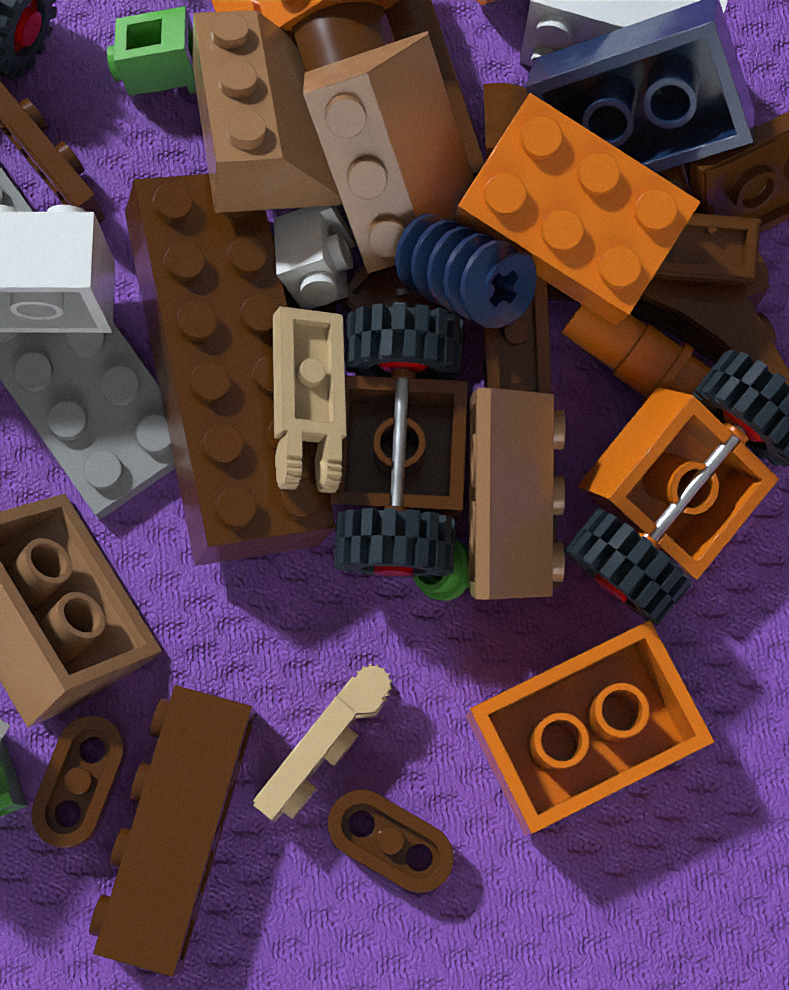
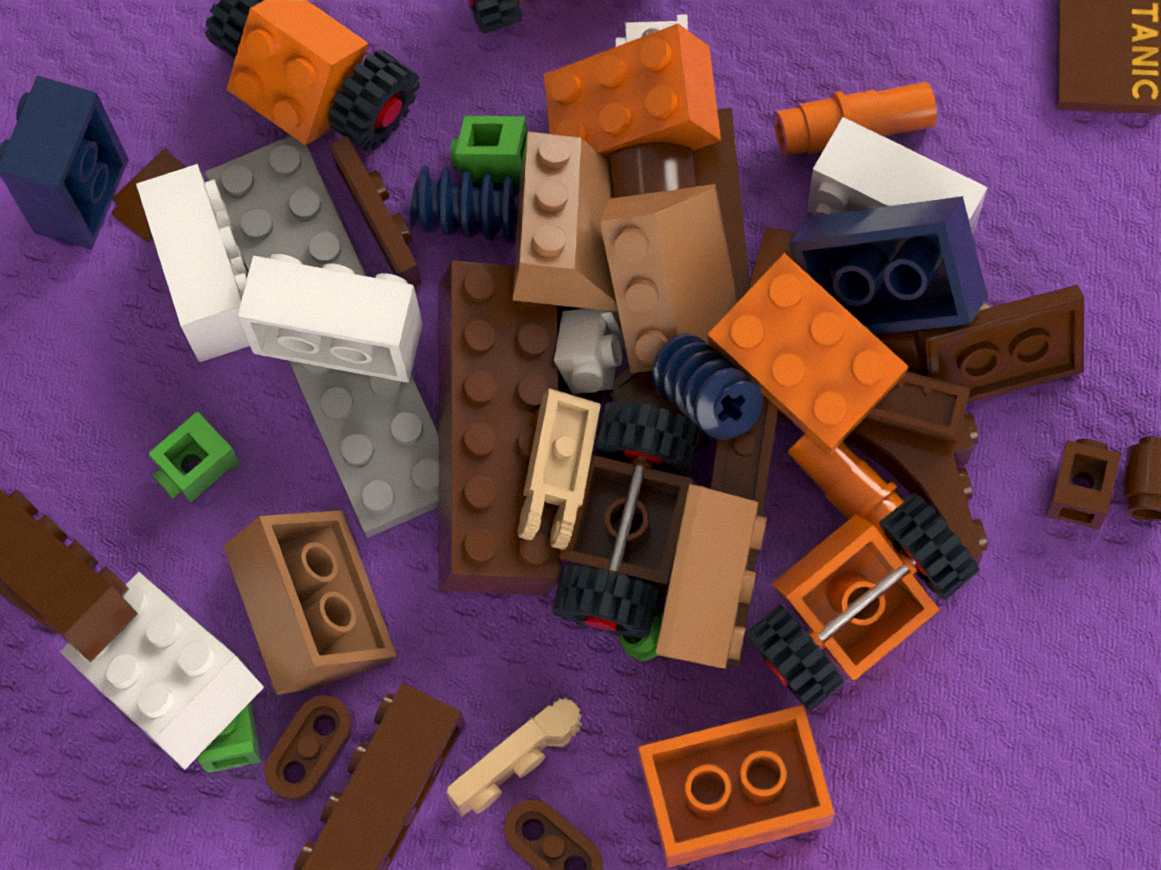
camera: 20 degrees right, 5 degrees down
(136, 118) = (464, 204): none -> dark blue piece

